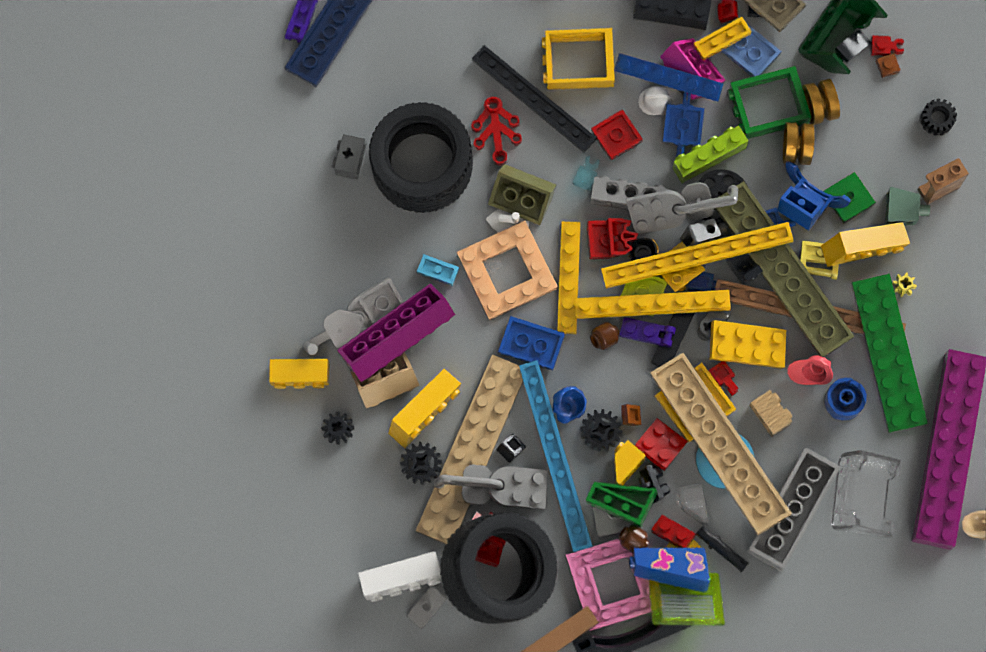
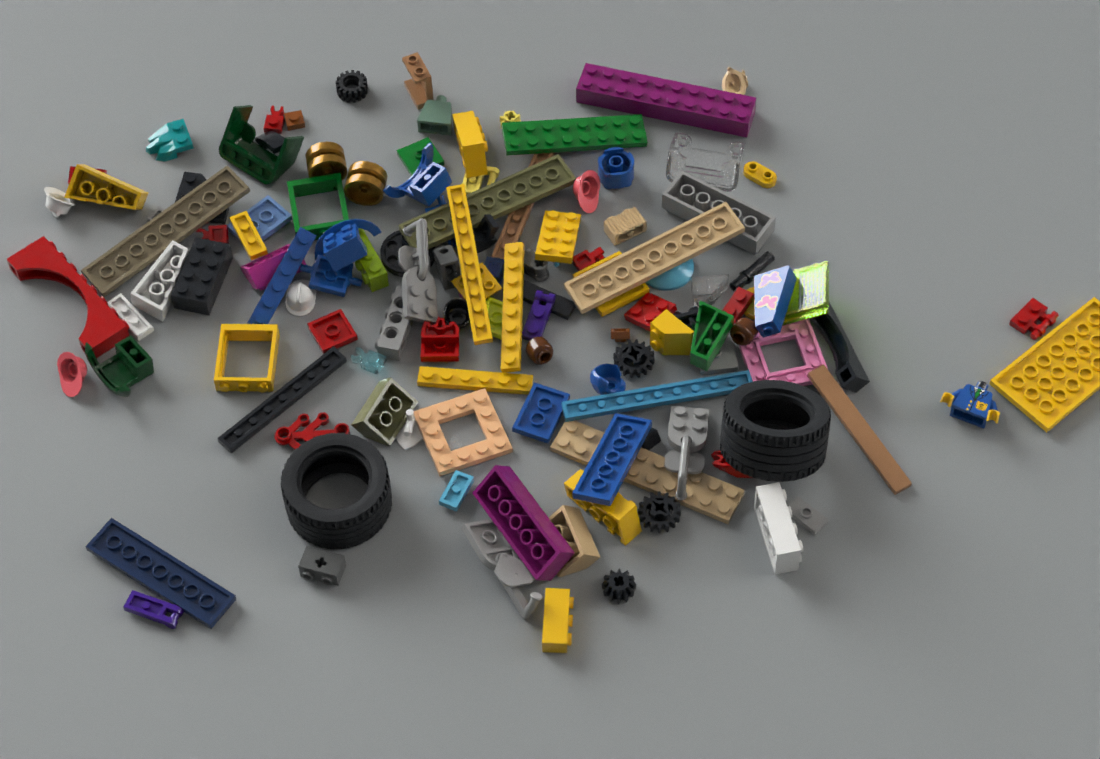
camera: 90 degrees left, 20 degrees down
(467, 412) = (612, 459): none -> blue plate
(708, 126) = (343, 244): none -> blue piece
(858, 555) = (758, 173): none -> yellow plate

